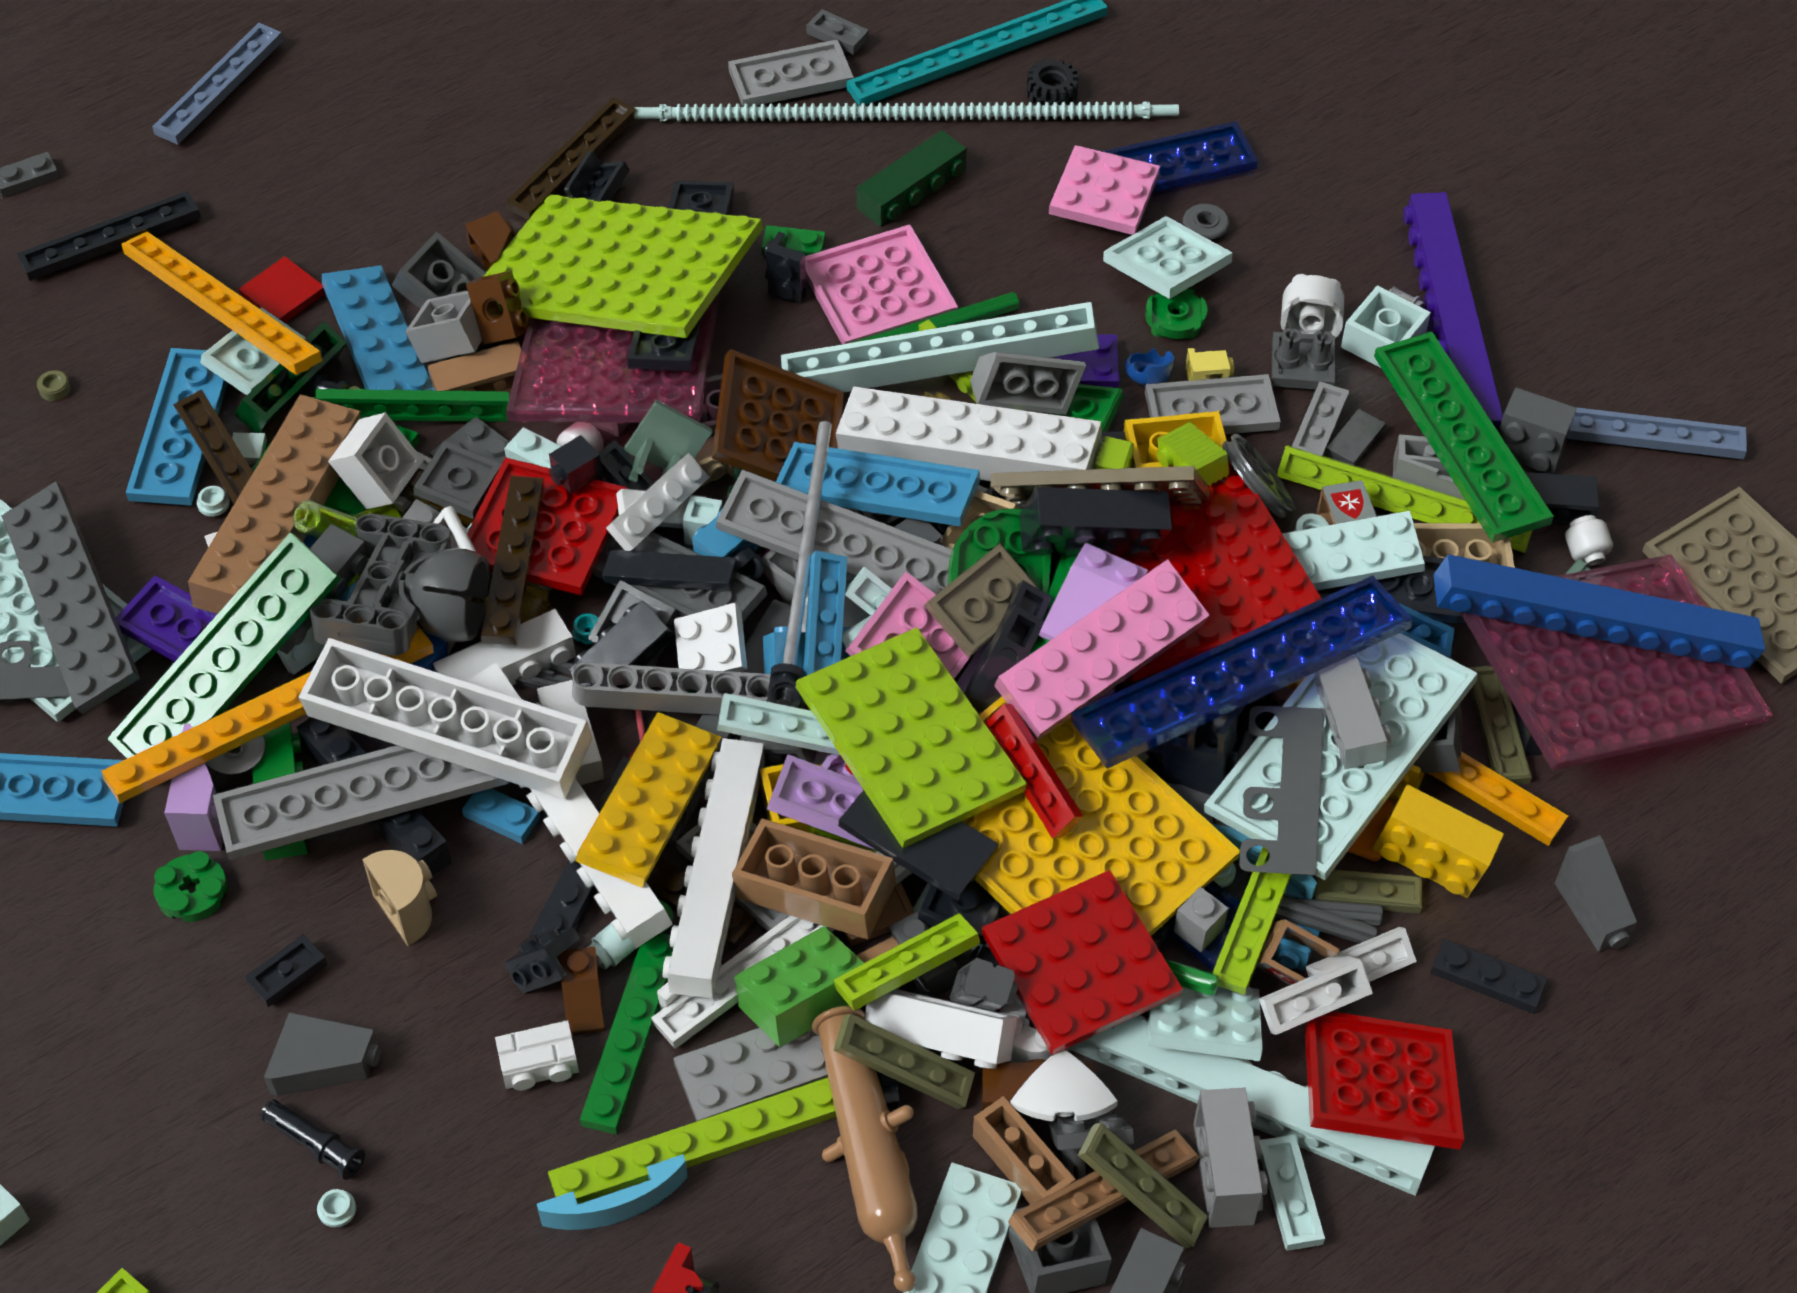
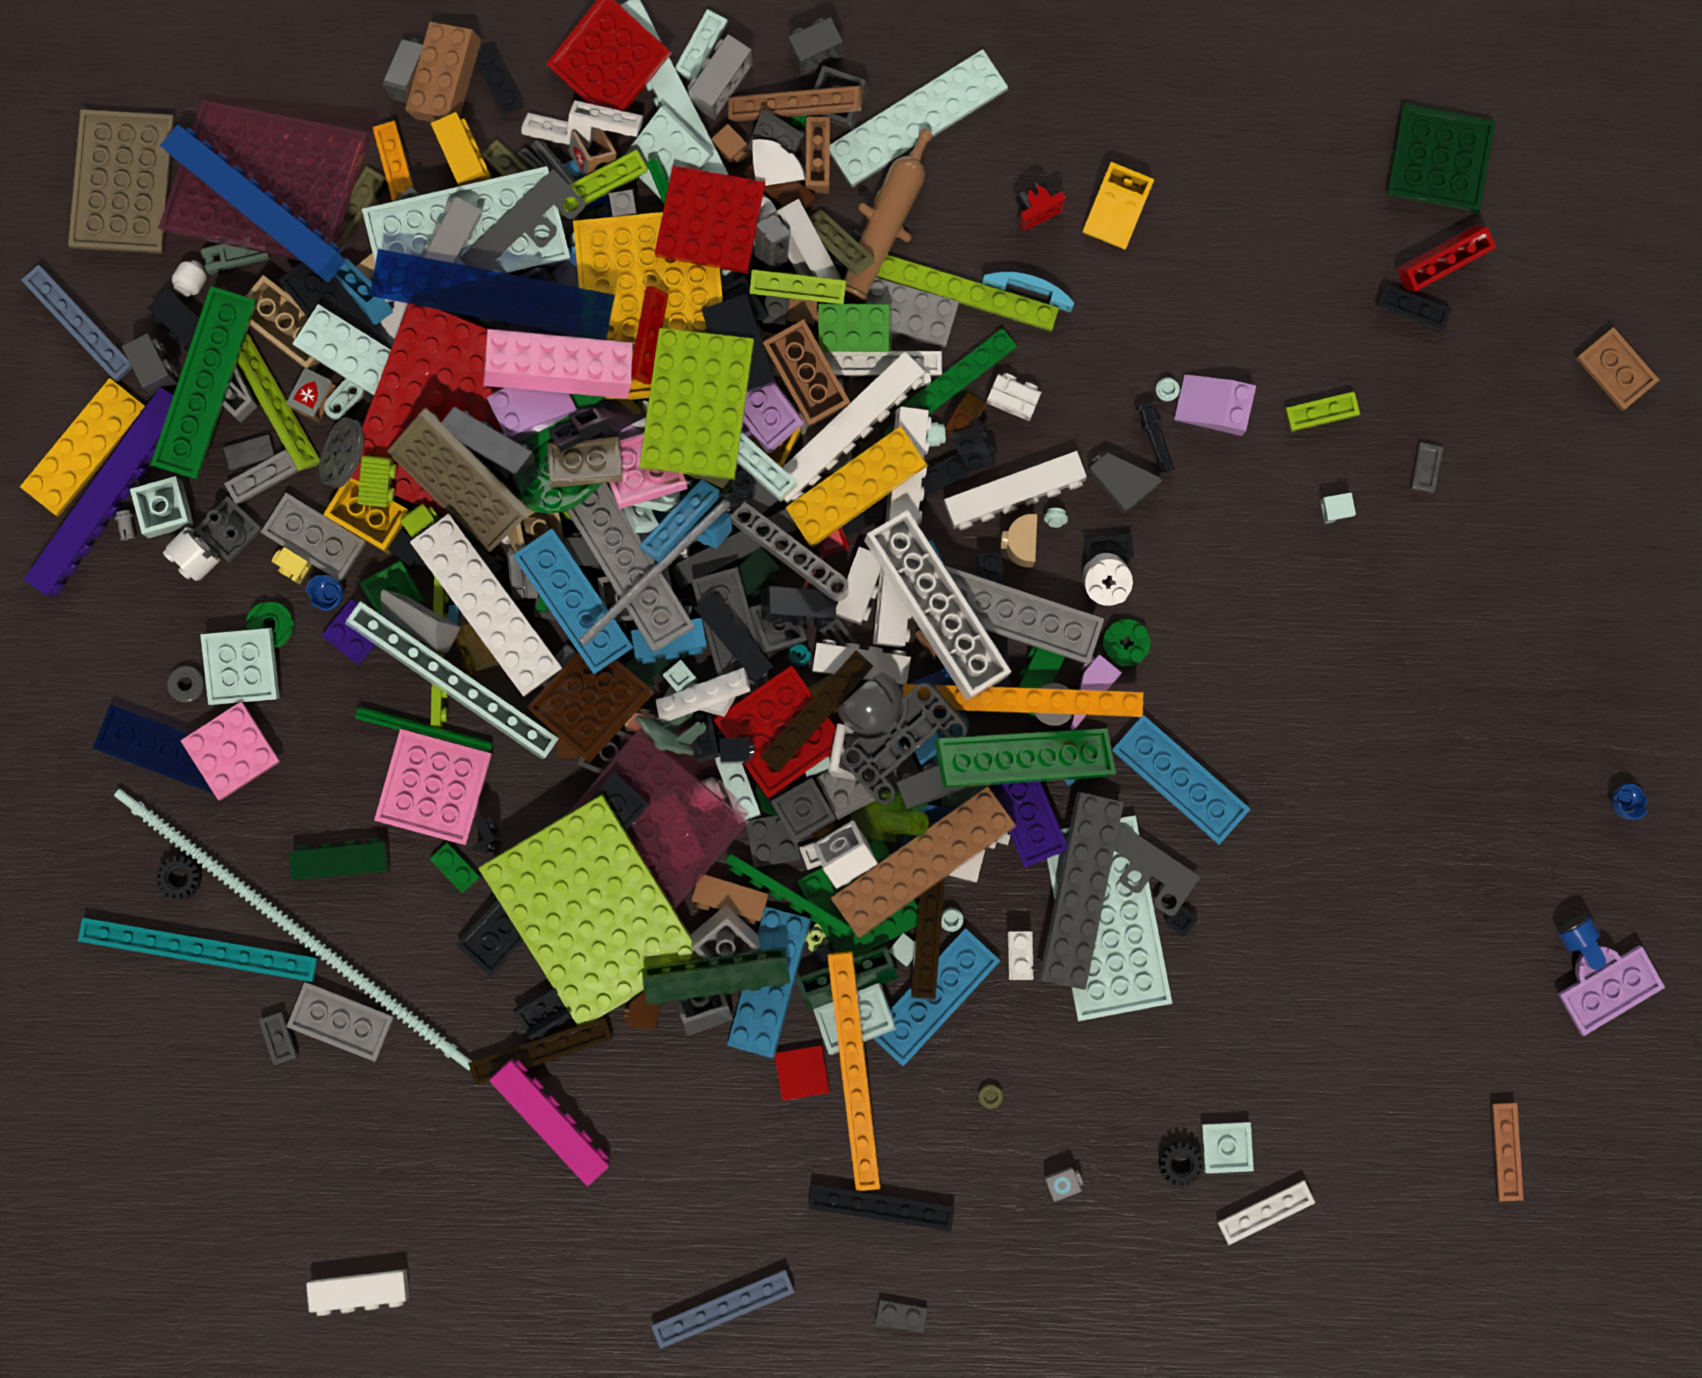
camera: 140 degrees left, 30 degrees up
(105, 509) = (1020, 955): none -> white brick
(254, 1232) = (1215, 403): none -> lavender slope
(259, 922) = (1116, 589): none -> white brick
(380, 958) = (1055, 517): none -> light aqua plate
(432, 284) = (715, 976): none -> dark green brick
(454, 954) = (1015, 490): none -> white brick
(492, 322) = (690, 923): reddish brown brick -> none
(513, 107) = (549, 1122): none -> dark pink brick
(712, 640) = (749, 565): white plate -> none
(1143, 1185) = (776, 90): olive tile -> none
(1144, 1096) = (730, 145): none -> medium nougat brick
(1518, 333) = (83, 447): none -> yellow plate
(1552, 923) = (443, 72): none -> medium nougat brick

